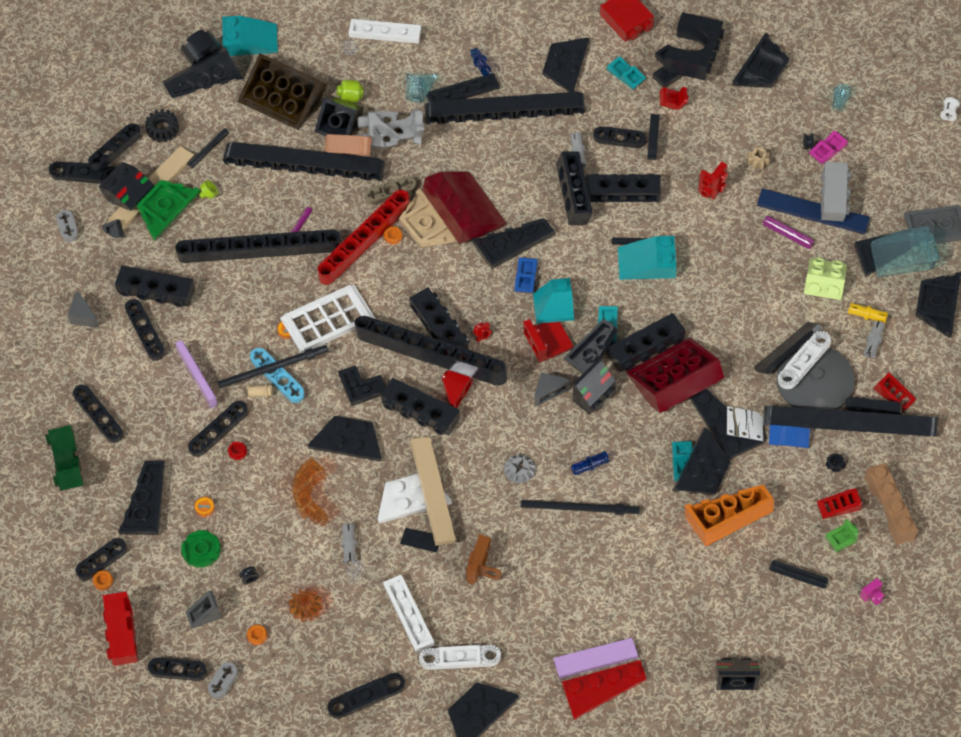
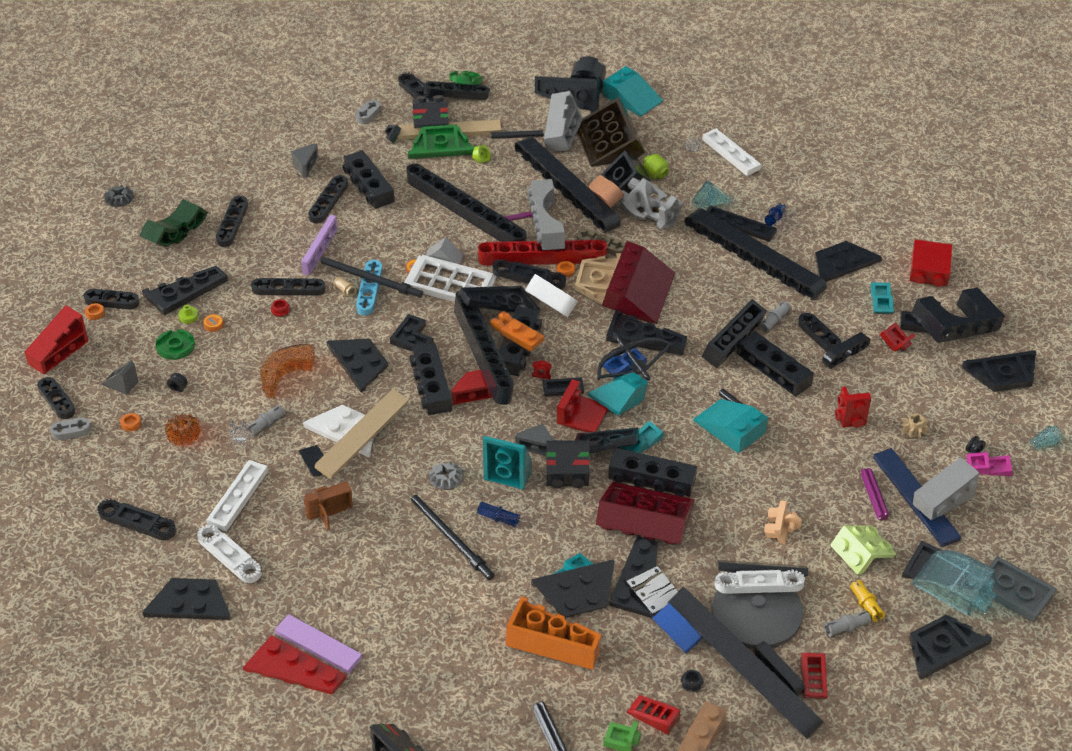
camera: 45 degrees right, 15 degrees down
(105, 129) = (466, 77): none -> green tile
(163, 134) = (504, 101): black tyre -> none
(177, 518) = (188, 314): none -> lime tile
(239, 110) = (562, 122): none -> light grey wedge
(293, 299) = (445, 251): none -> light grey slope
(361, 216) = (548, 230): none -> light grey arch
(376, 263) = (524, 273): none -> black plate
(390, 301) = (497, 298): none -> black wing
(416, 267) = (551, 295): none -> white beam
(438, 317) = (517, 331): none -> orange hinge
(509, 331) = (557, 387): none -> black tile
(540, 269) = (637, 364): none -> black piece
(558, 424) = (506, 462): none -> teal slope
(766, 312) = (784, 520): none -> light nougat hips

